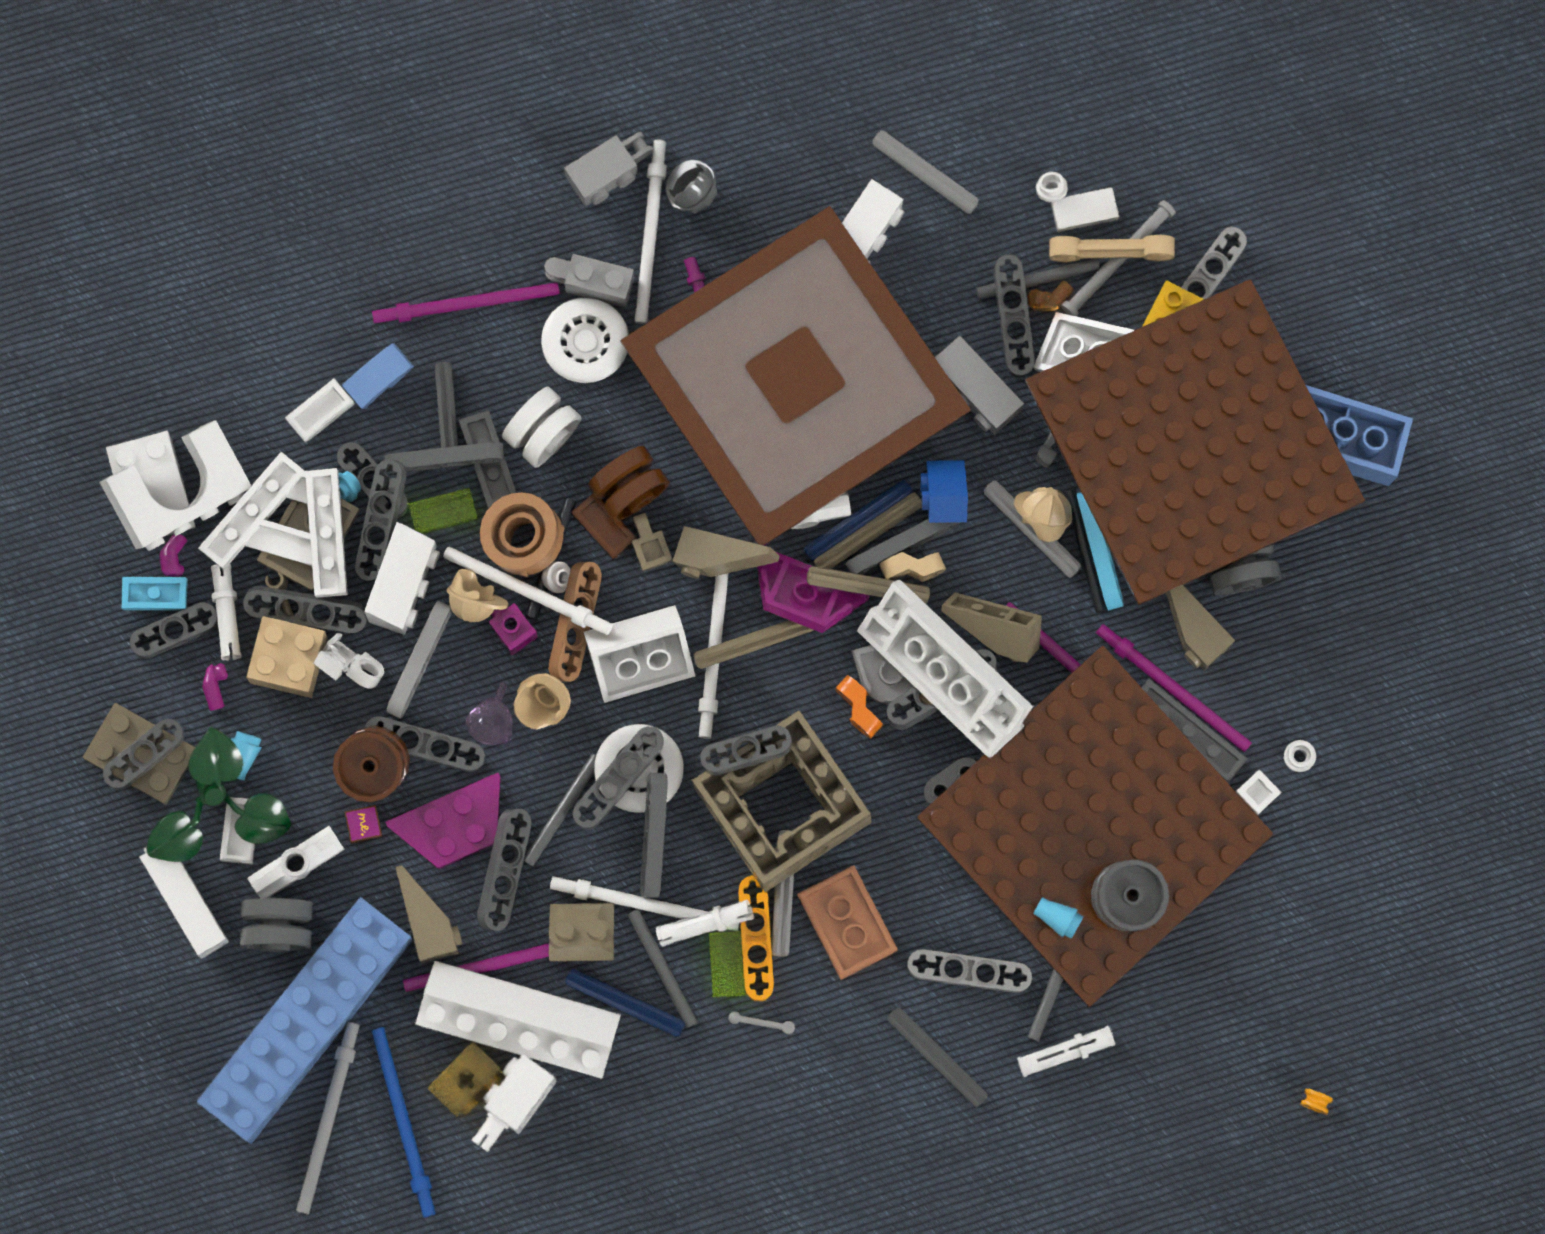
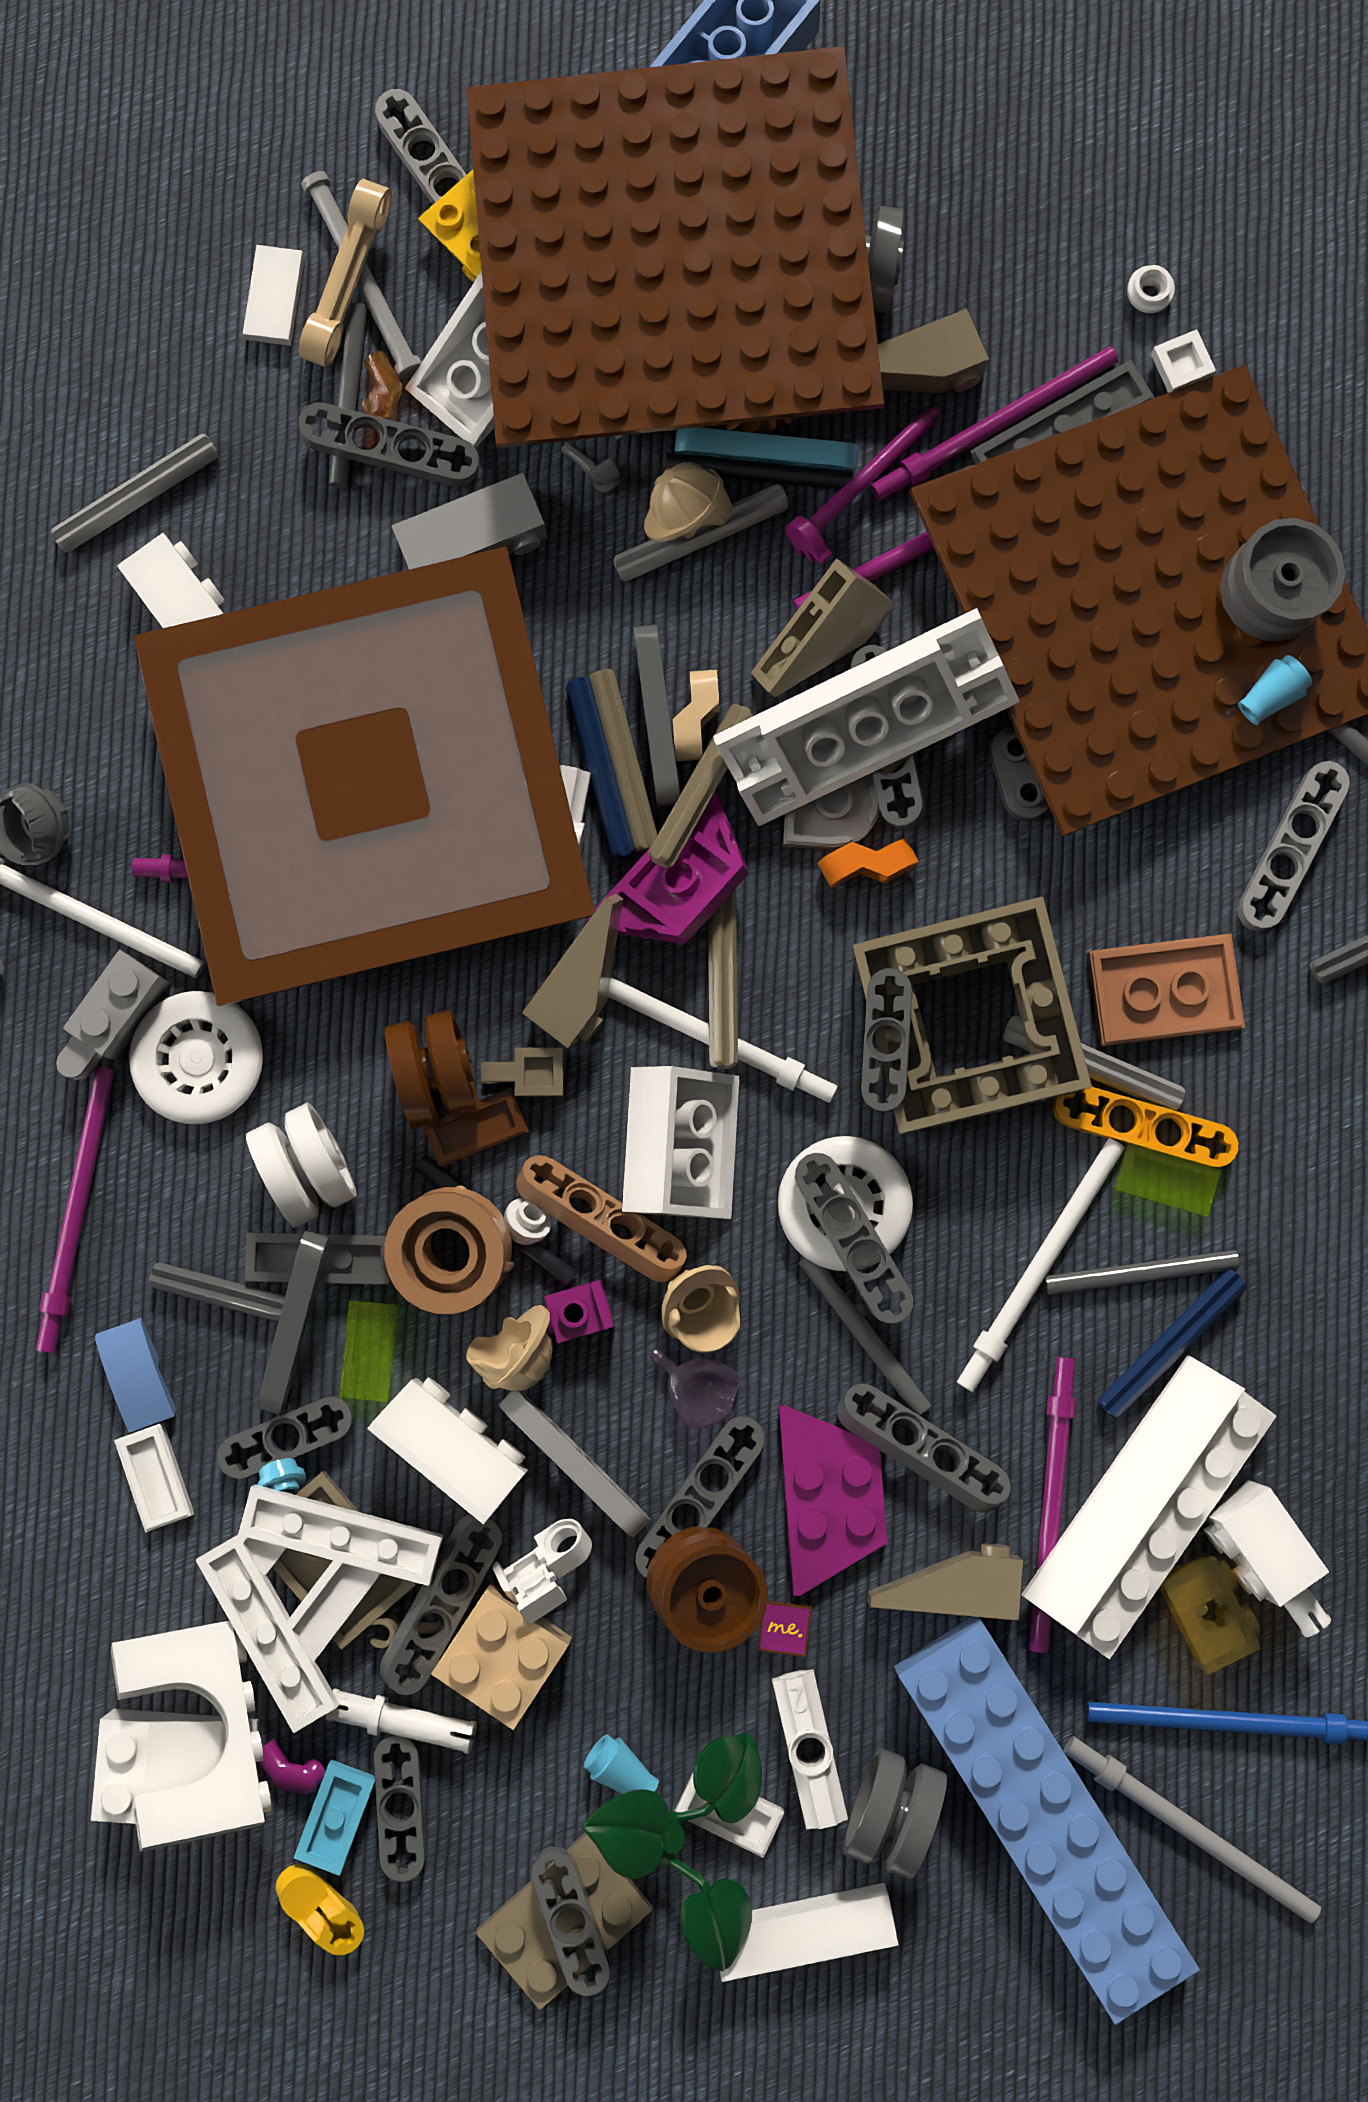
camera: 60 degrees left, 5 degrees up
(101, 589) = (334, 1929): none -> yellow piece
(211, 685) = (503, 1781): magenta arm -> none
(374, 518) = (345, 1454): dark grey beam -> none
(579, 615) = (600, 1208): white bar -> none
(581, 932) = (1054, 1369): dark tan slope -> none
(653, 835) = (952, 1216): dark grey beam -> none
(716, 919) = (1104, 1180): white pin -> none
(788, 1027) = (1283, 1126): light grey hinge -> none
(944, 491) = (609, 626): blue brick -> none
(1048, 181) = (218, 319): white plate -> none
(1054, 593) = (805, 533): none -> magenta piece

